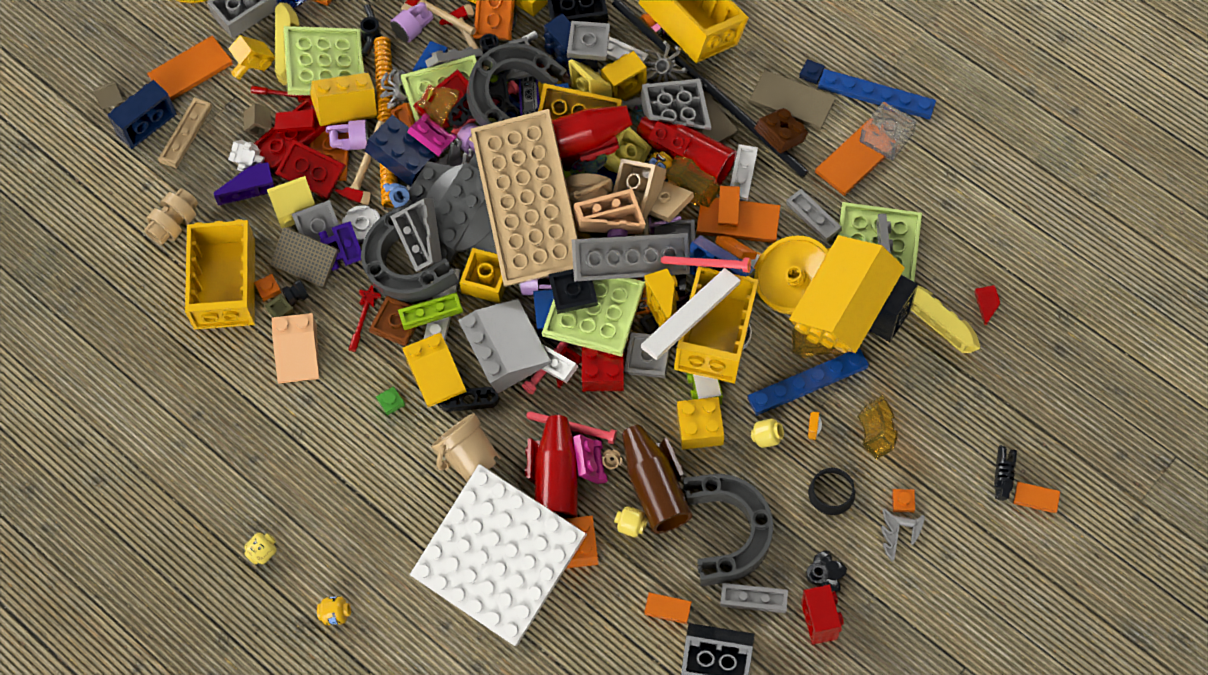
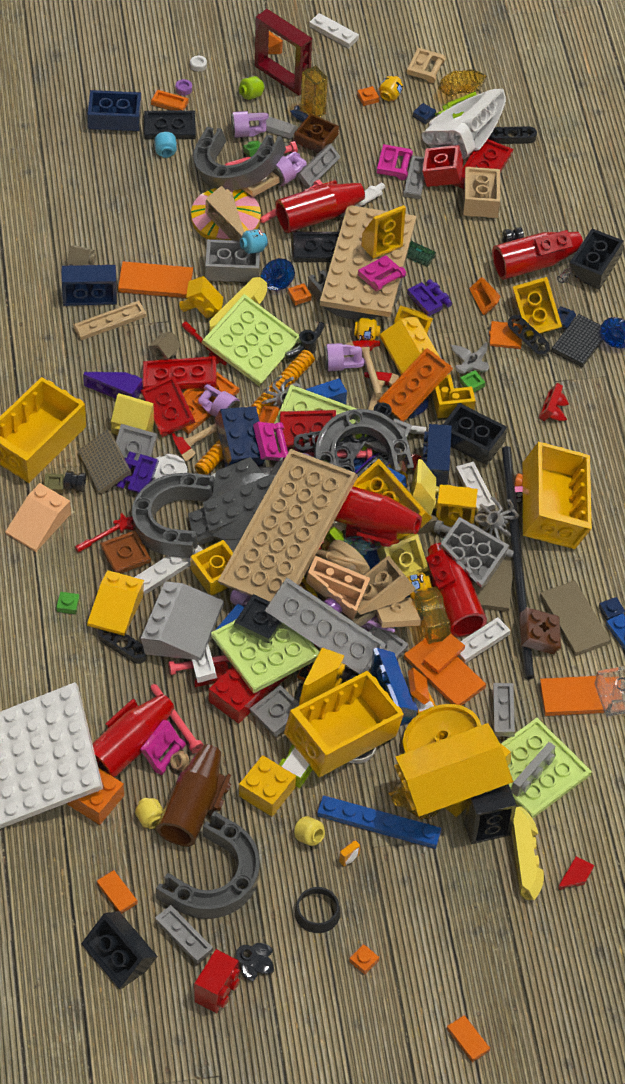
camera: 35 degrees right, 10 degrees down
(166, 223) = (49, 365): tan piece -> none
(245, 154) = (133, 362): white piece -> none
(267, 287) = (61, 464): orange plate -> none
(295, 121) = (189, 364): red tile -> none
(343, 99) = (236, 373): yellow slope -> none
(398, 195) = (207, 464): medium blue piece -> none
(419, 233) = (193, 500): light grey wedge -> none
(430, 311) = (153, 562): lime tile -> none
(439, 57) = (332, 393): light grey plate -> none
(442, 103) = (298, 424): clear yellow piece -> none
(465, 448) = (81, 665): tan piece -> none
(588, 40) = (448, 456): light grey plate -> none
(690, 314) = (324, 695): white tile -> none
(745, 265) = (399, 692): coral bar -> none
(878, 427) = (396, 890): clear yellow brick -> none
(893, 523) = (340, 968): light grey piece -> none
(1004, 473) = (460, 1001): black hinge -> none

